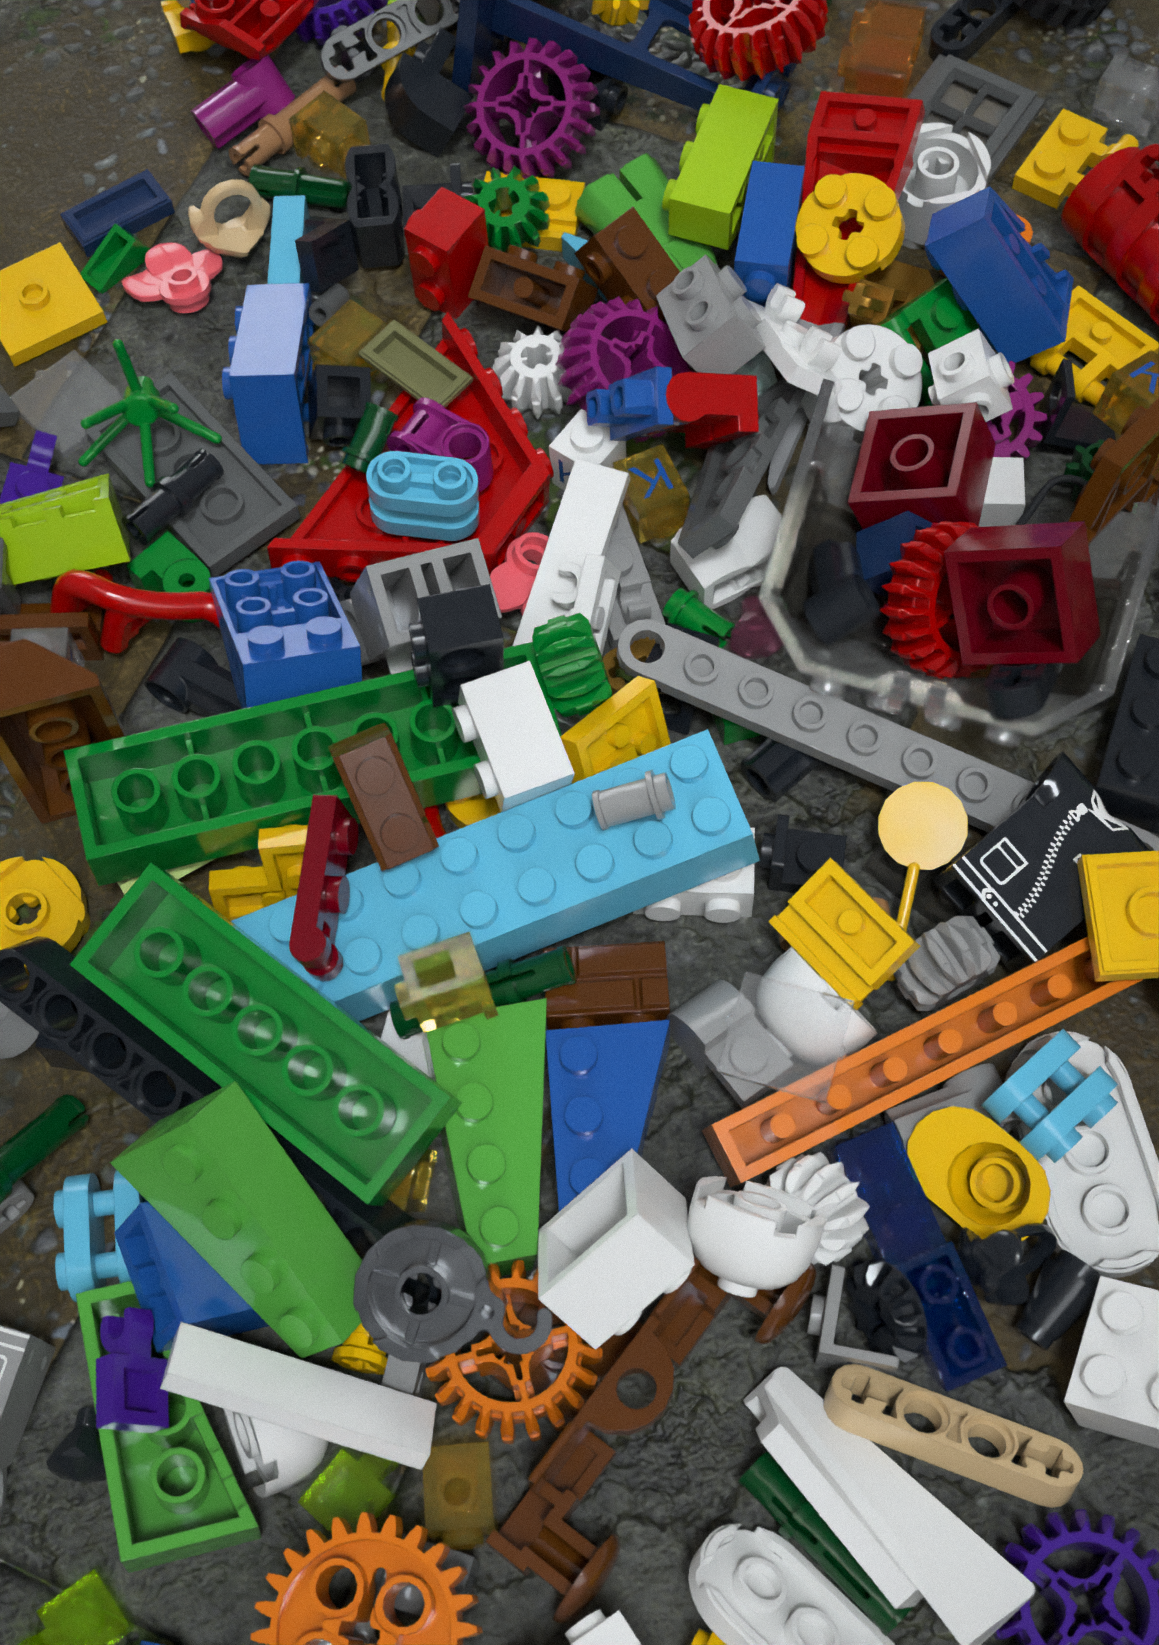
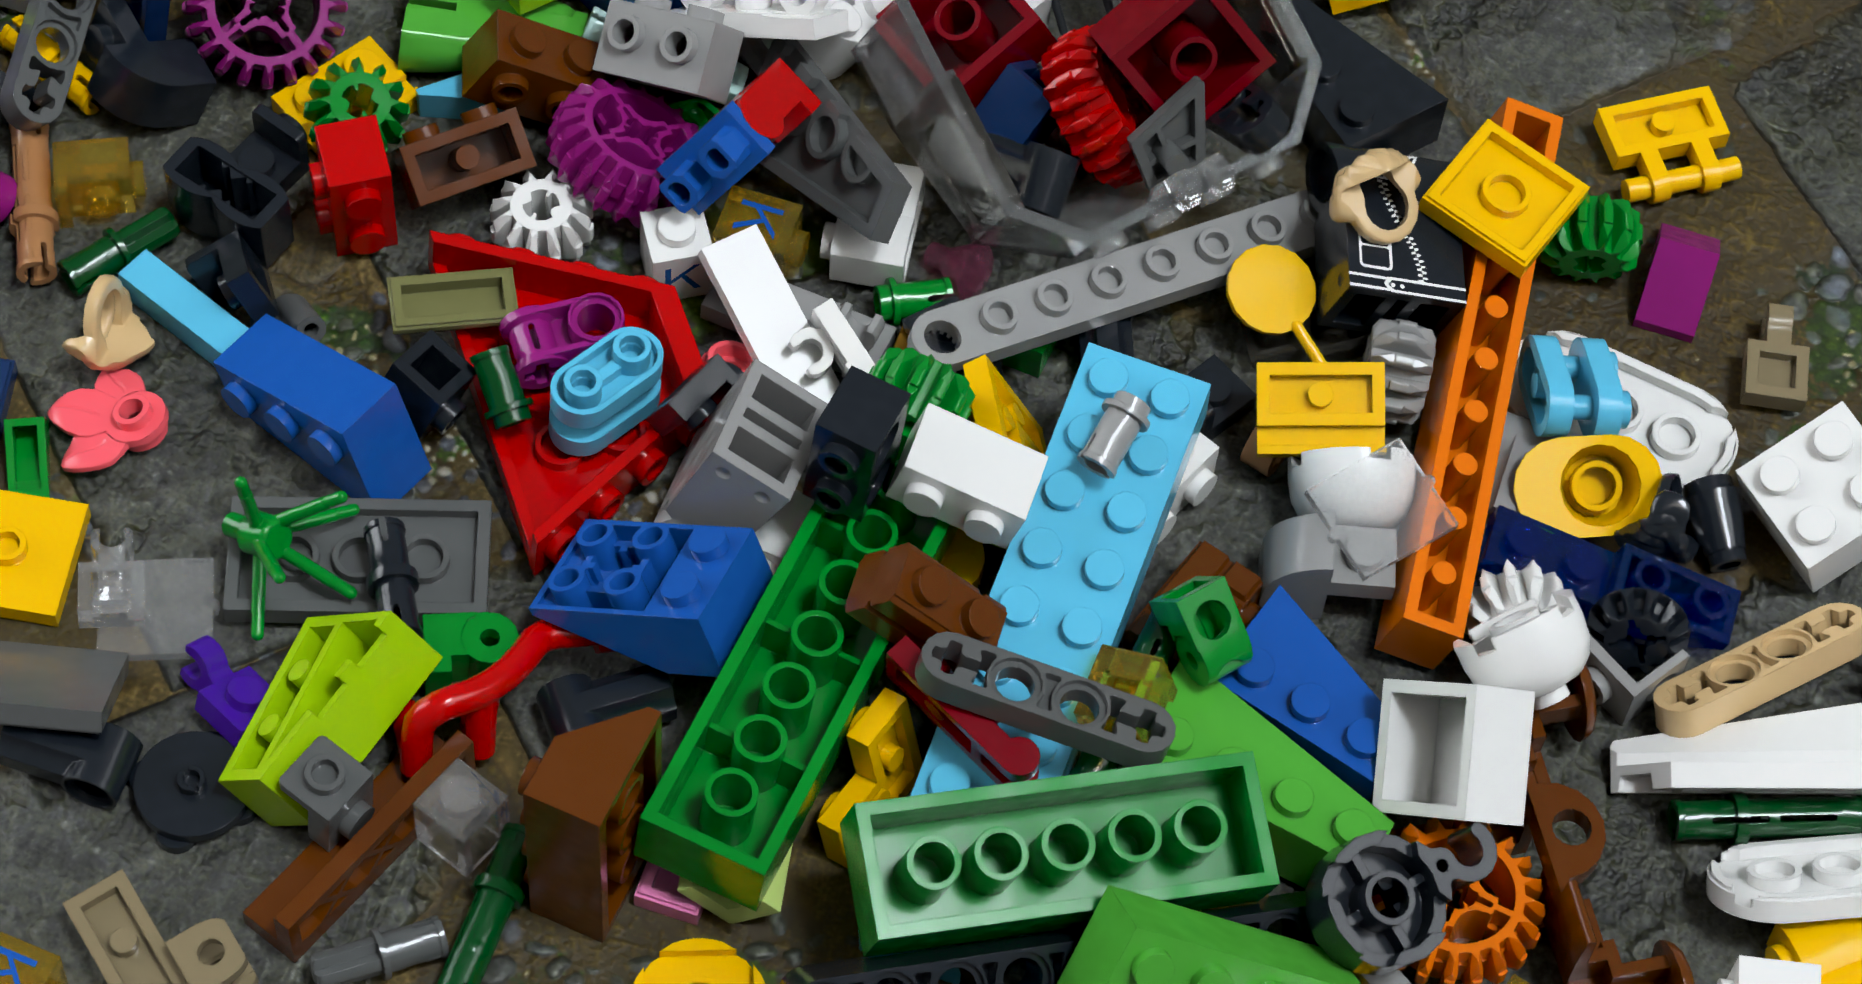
camera: 60 degrees left, 5 degrees down
(49, 366) = (111, 586): none -> clear plate
(344, 336) = (361, 327): clear yellow brick -> none
(354, 925) = (1042, 710): none -> dark grey beam
(443, 535) = (695, 396): none -> black bracket
(556, 990) = (1205, 627): none -> green leg
(950, 650) = (1172, 135): none -> dark grey piece
(1016, 804) = (1348, 200): none -> tan piece

